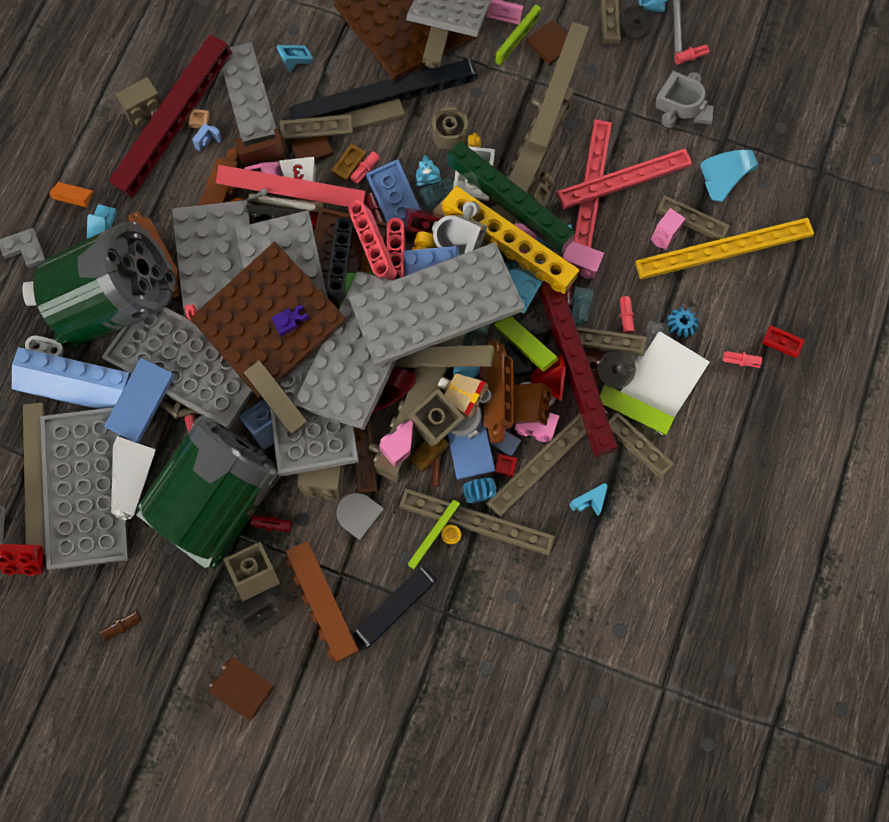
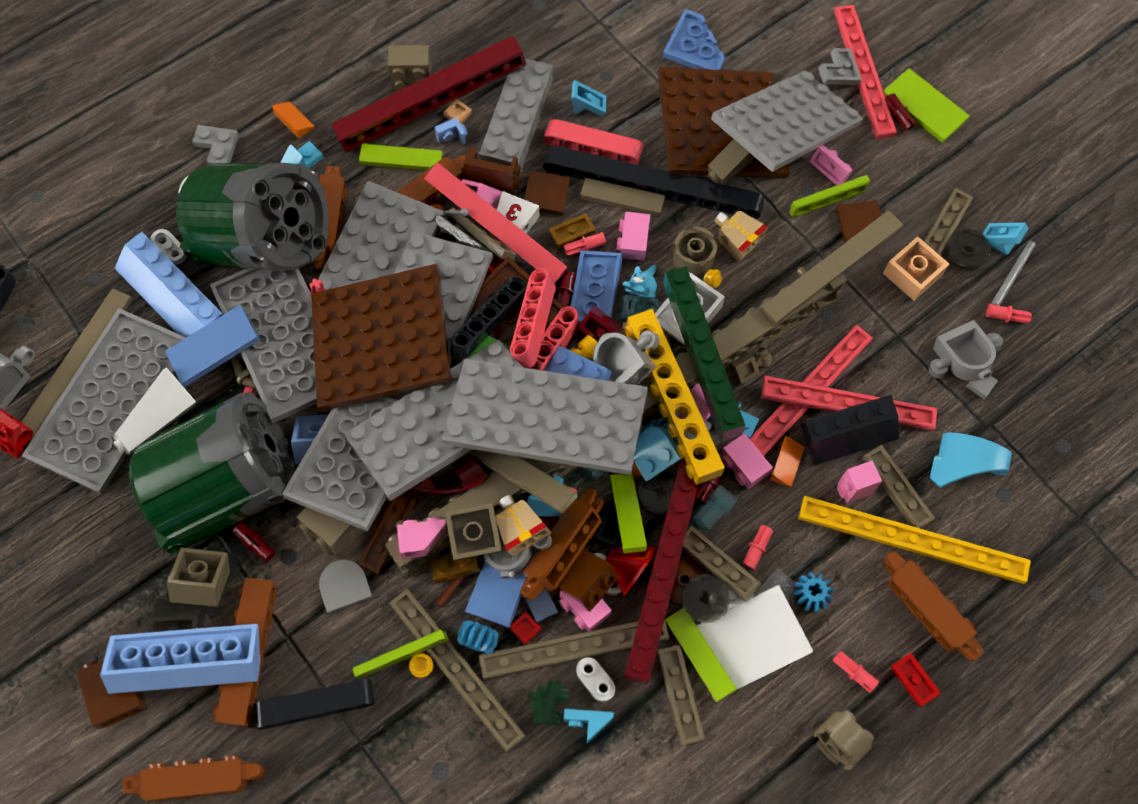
camera: 35 degrees right, 5 degrees down
(120, 625) = (48, 553): reddish brown pin -> none
(178, 178) = (398, 157): none -> lime tile
(275, 397) = (331, 417): dark tan tile -> none
(283, 632) = (182, 658): none -> light blue slope
(287, 320) = (393, 346): dark purple plate -> none
(316, 126) = (562, 178): dark tan tile -> none
(318, 86) = (592, 141): none -> coral beam
(345, 711) = (193, 780): none -> dark orange hinge
(397, 141) = (634, 236): none -> bright pink brick
(471, 97) = (739, 233): none -> tan torso
(554, 505) = (544, 701): none -> clear green hips
(576, 470) = (595, 679): none -> white plate
(608, 244) = (787, 462): none -> orange slope
(611, 55) = (915, 268): none -> light nougat brick
(639, 195) = (851, 429): none -> black slope
(763, 286) = (931, 607): none -> dark orange hinge
(763, 407) = (843, 739): none -> dark tan brick

